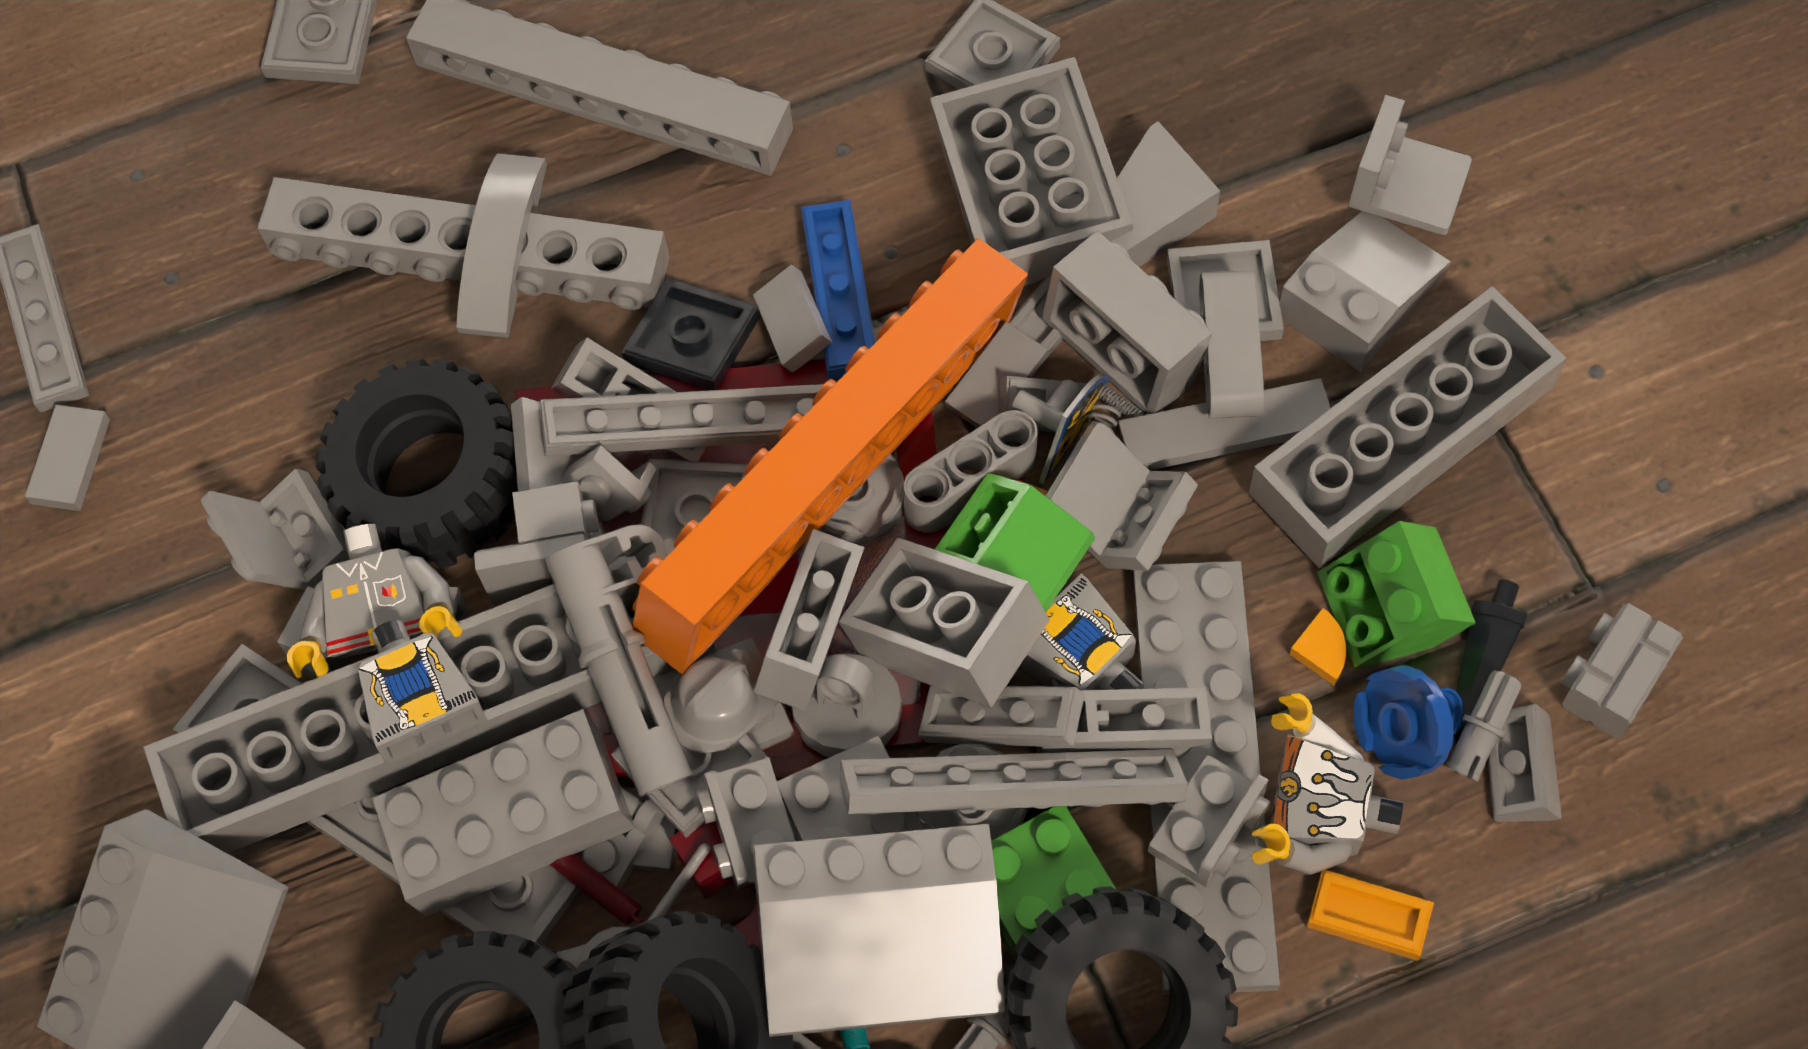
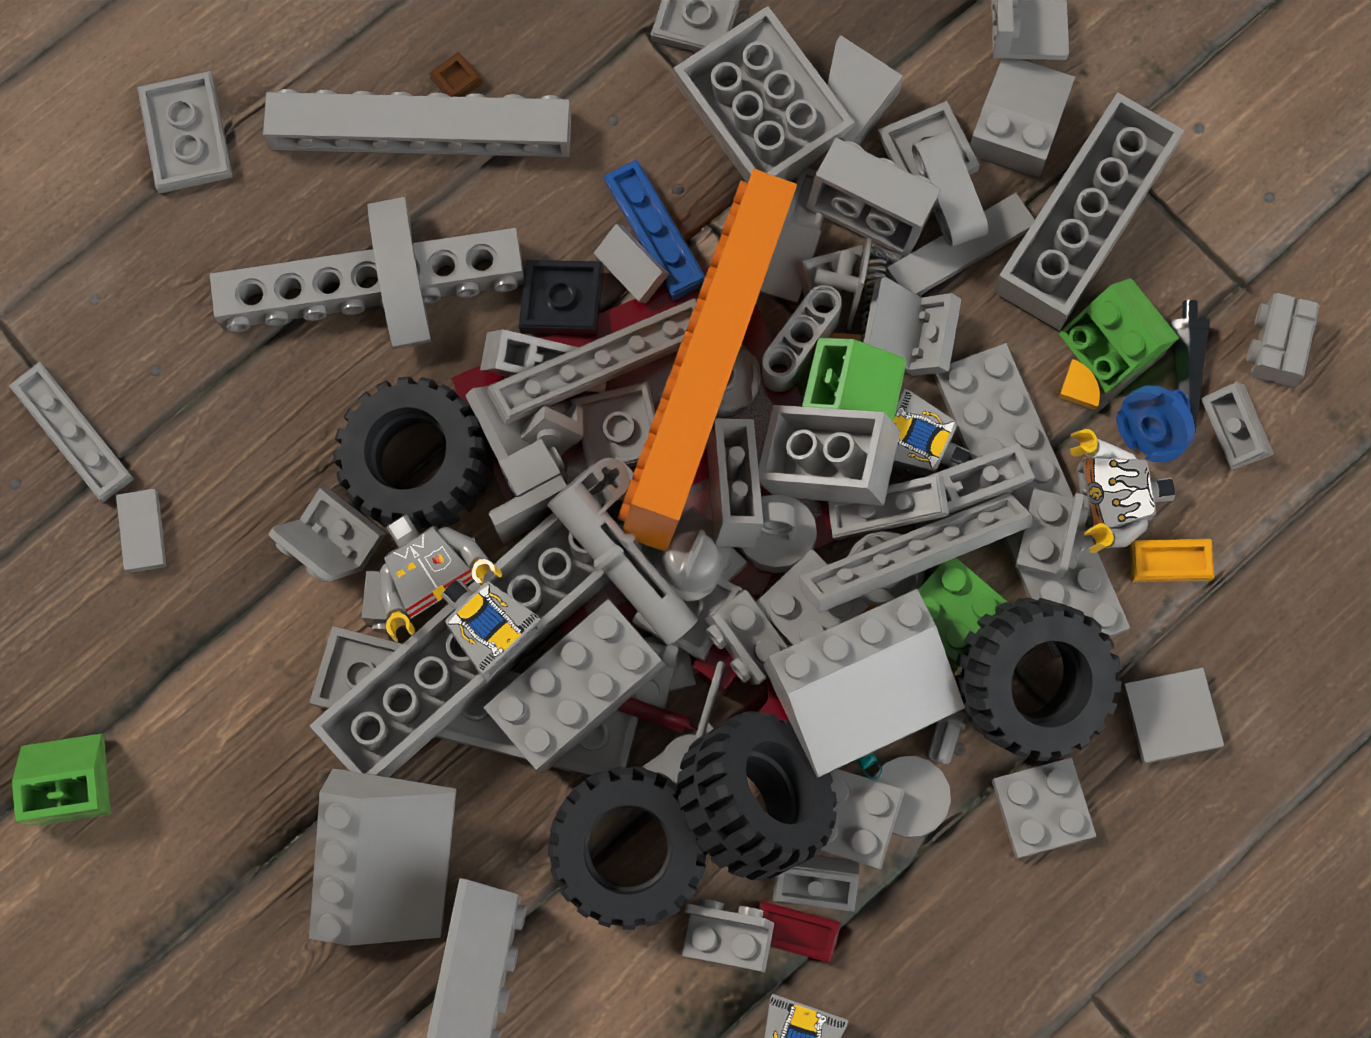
camera: 20 degrees left, 10 degrees up
(670, 42) = (456, 77): none -> reddish brown tile
(1484, 725) = (1207, 407): light grey axle -> none

